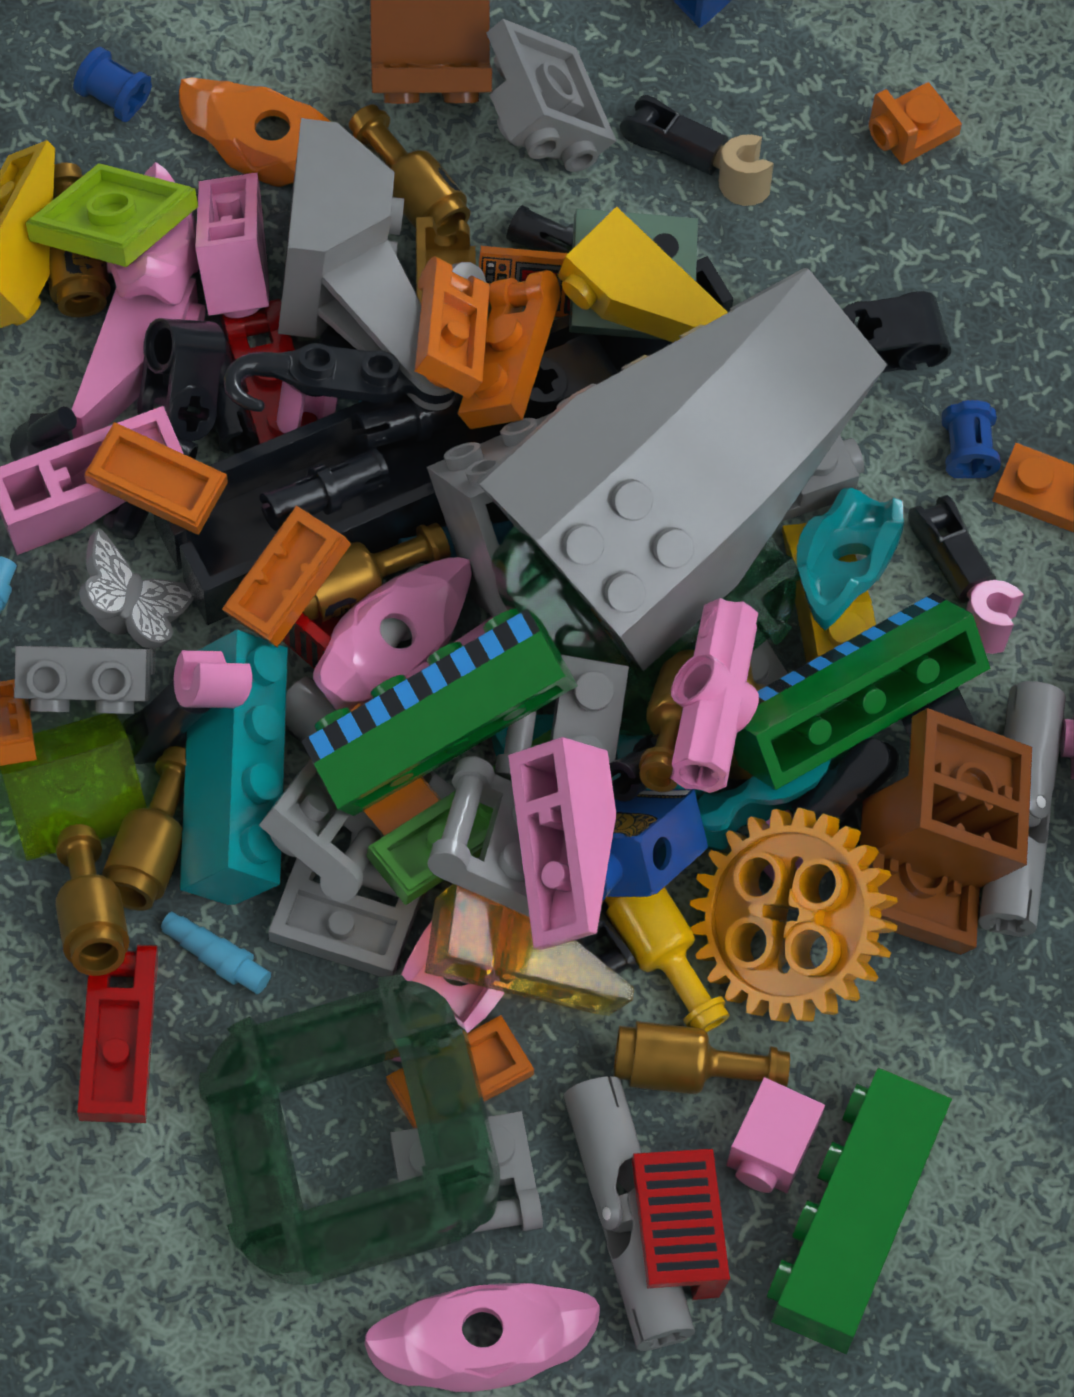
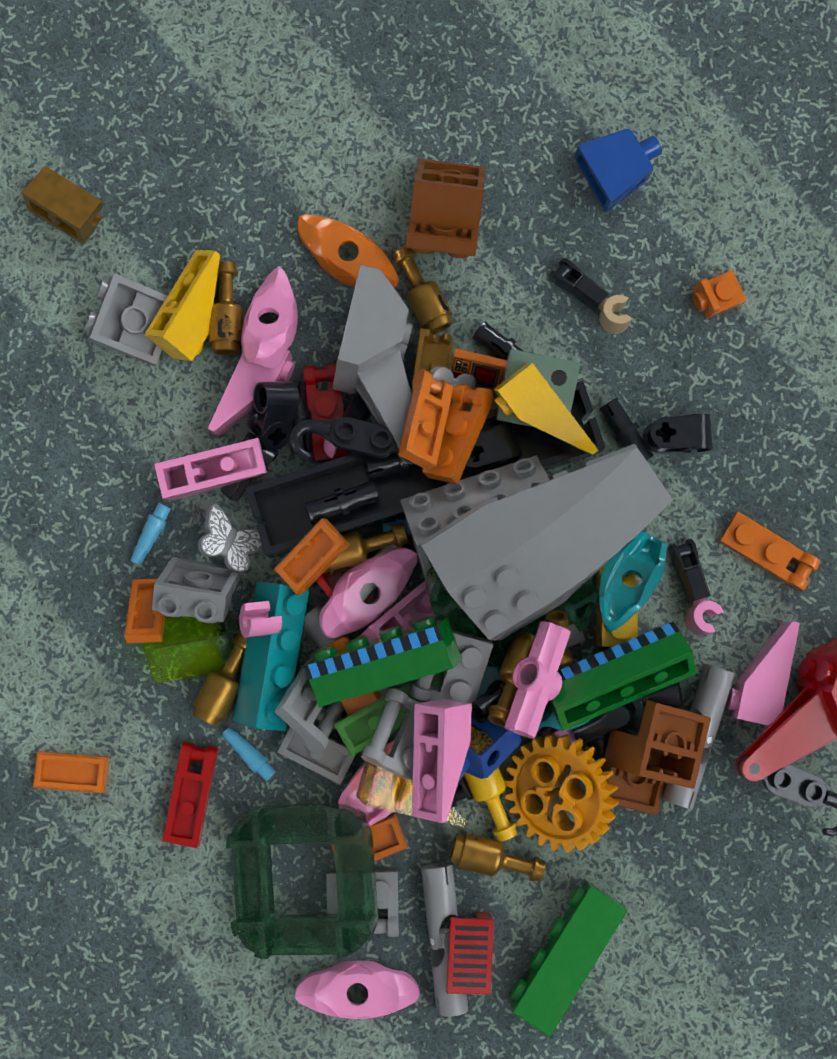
camera: 10 degrees right, 20 degrees up
(42, 432) = (193, 435): black plate -> none
(89, 906) = (181, 730): pearl gold piece -> none
(112, 84) = (261, 209): blue bush -> none
(112, 214) = (246, 306): lime tile -> none
(156, 478) = (247, 484): orange tile -> none
(232, 246) = (313, 327): bright pink slope -> none
(547, 98) = (509, 258): light grey plate -> none
(774, 1137) = (528, 910): bright pink brick -> none
(970, 439) = (713, 506): blue bush -> none

